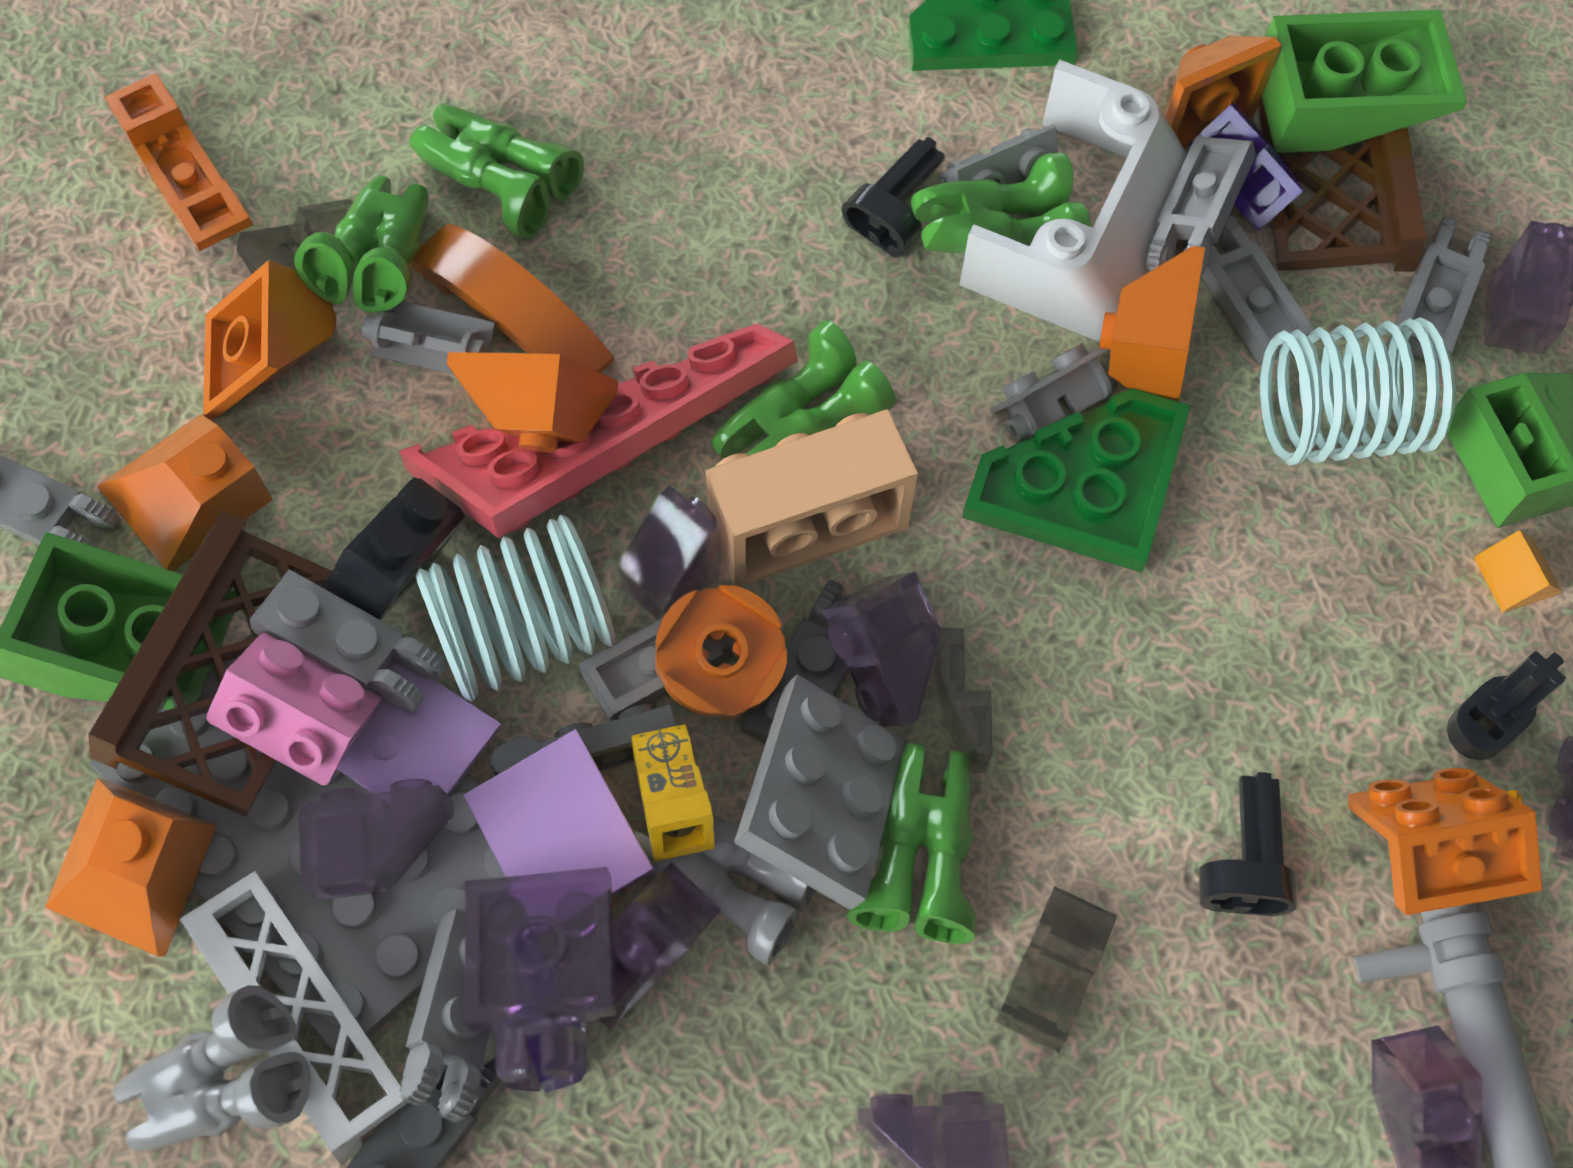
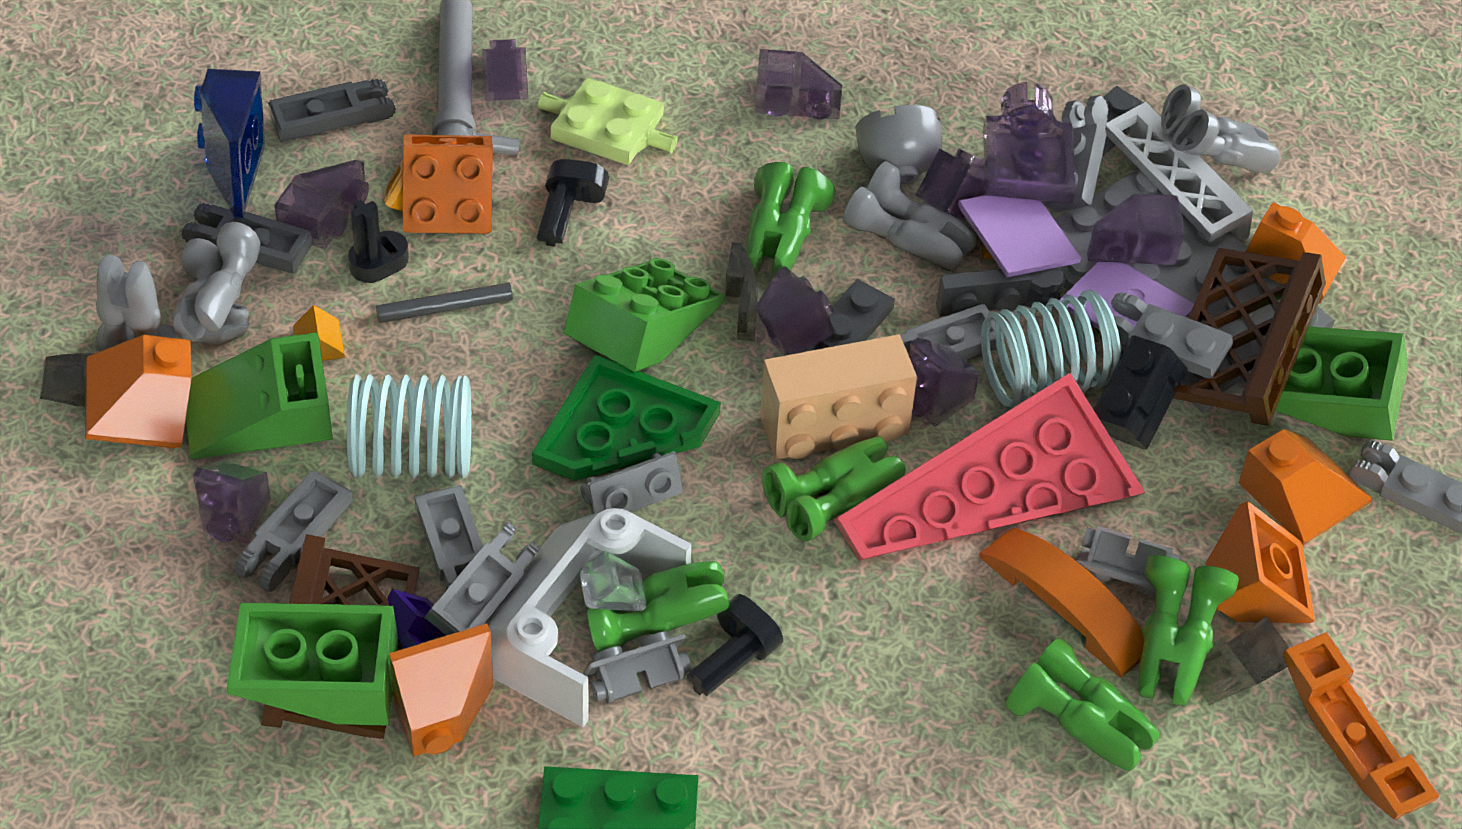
camera: 175 degrees left, 15 degrees down
(291, 707) = (1195, 292): bright pink bracket -> none
(535, 395) = (1043, 479): orange slope -> none
(672, 793) = (945, 231): yellow leg -> none
(711, 615) = (889, 312): orange plate -> none
(751, 1015) = (904, 139): none -> light grey cylinder
(821, 793) = (848, 228): light grey plate -> none
(1048, 193) = (612, 584): none -> clear slope
(1056, 969) = (707, 164): clear smoke slope -> none
(1093, 655) = (639, 312): none -> bright green slope
(1154, 326) = (551, 478): orange slope -> none
(1232, 1041) = (607, 121): none -> yellowish green plate
(1373, 654) = (444, 302): none -> dark grey bar

